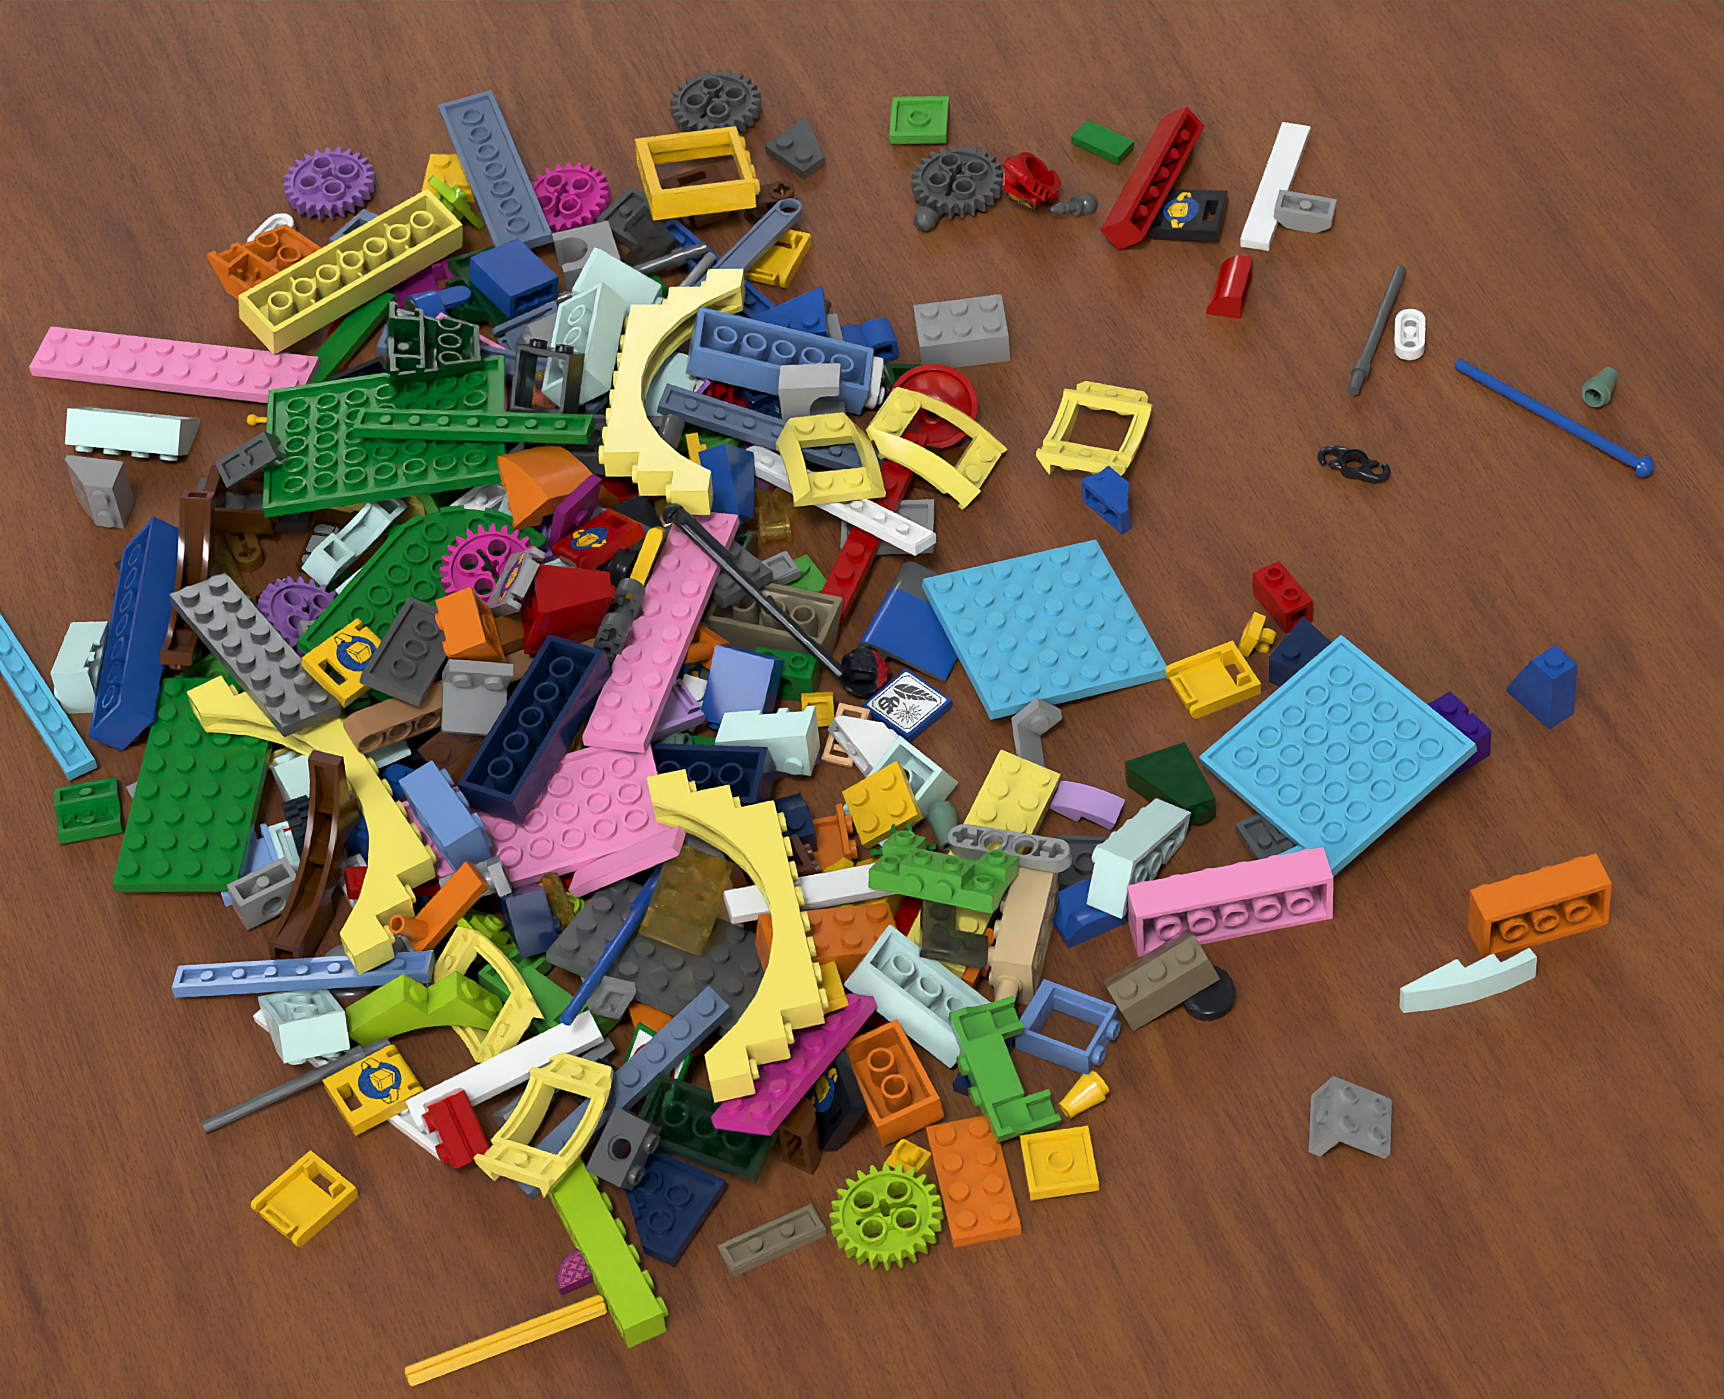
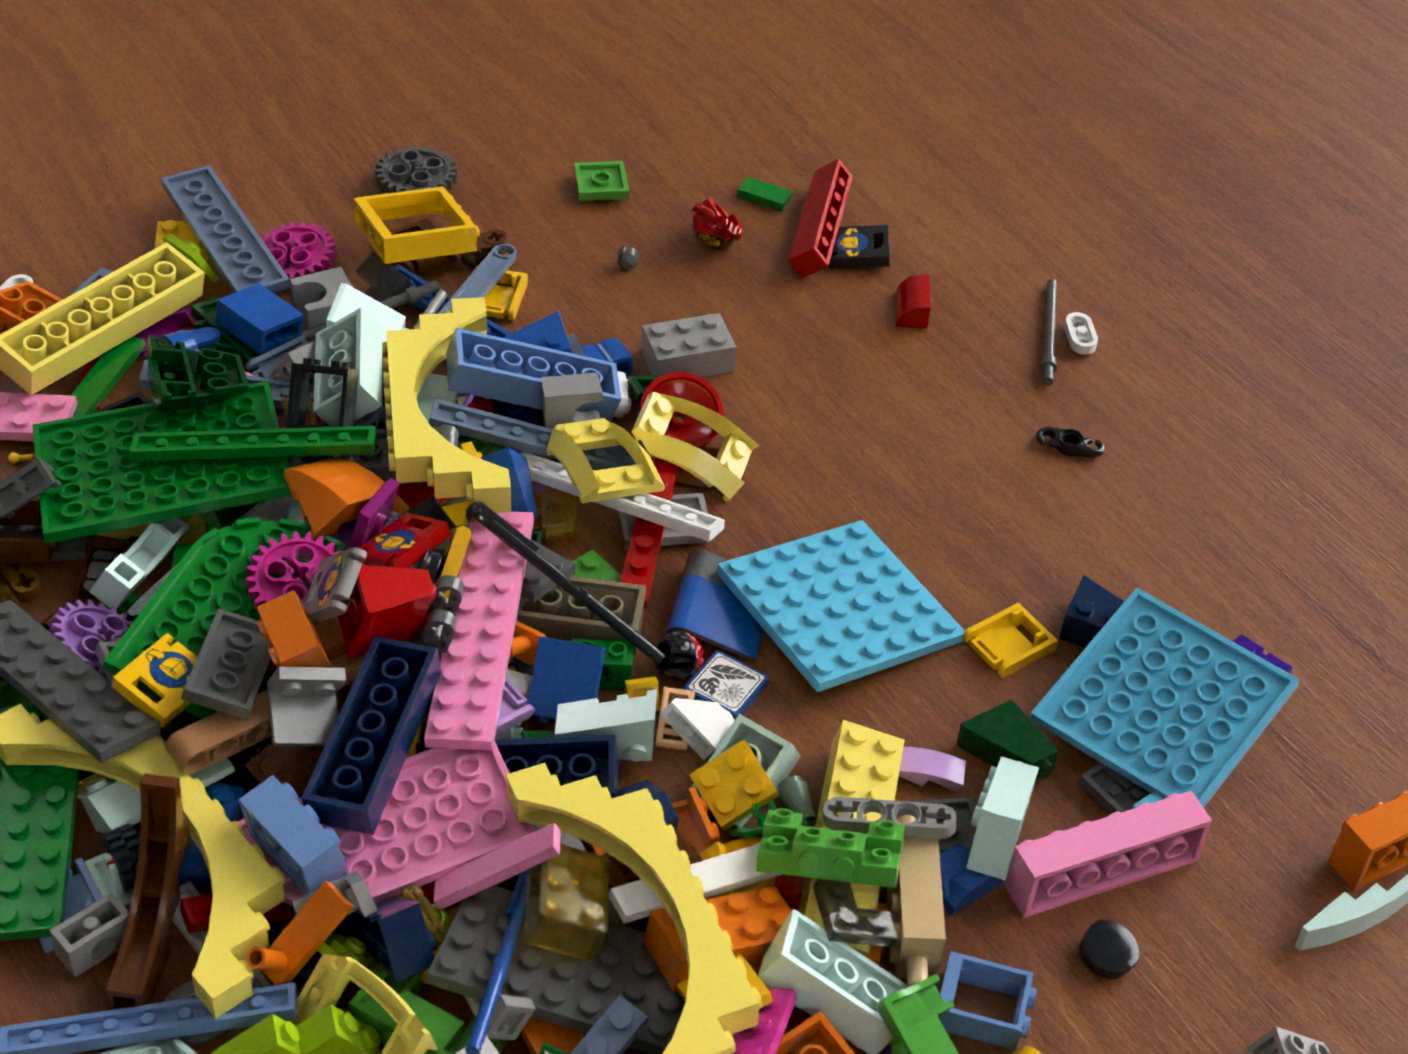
camera: 20 degrees left, 5 degrees down
(329, 183) = (63, 248): medium lavender gear -> none
(621, 212) = (350, 261): dark grey wing -> none
(783, 568) = (582, 563): light grey tile -> none
(797, 150) = (497, 208): dark grey wing -> none
(957, 181) = (665, 231): dark grey gear -> none
(1030, 725) = (856, 692): light grey bracket -> none
(1077, 205) = (758, 243): dark grey bar -> none
(1096, 396) = (831, 447): light yellow wedge -> none
(1108, 497) = (865, 482): blue slope -> none
(1161, 979) = (1065, 937): dark tan slope -> none
(1255, 636) = (1036, 596): yellow tile -> none
(1278, 175) = (923, 223): white tile -> none
(1282, 596) = (1050, 560): red brick -> none
(1304, 211) = (958, 240): light grey slope -> none
(1547, 687) = (1322, 623): blue slope -> none
(1600, 387) = (1257, 369): sand green cone -> none
(1644, 466) = (1320, 430): blue bar -> none

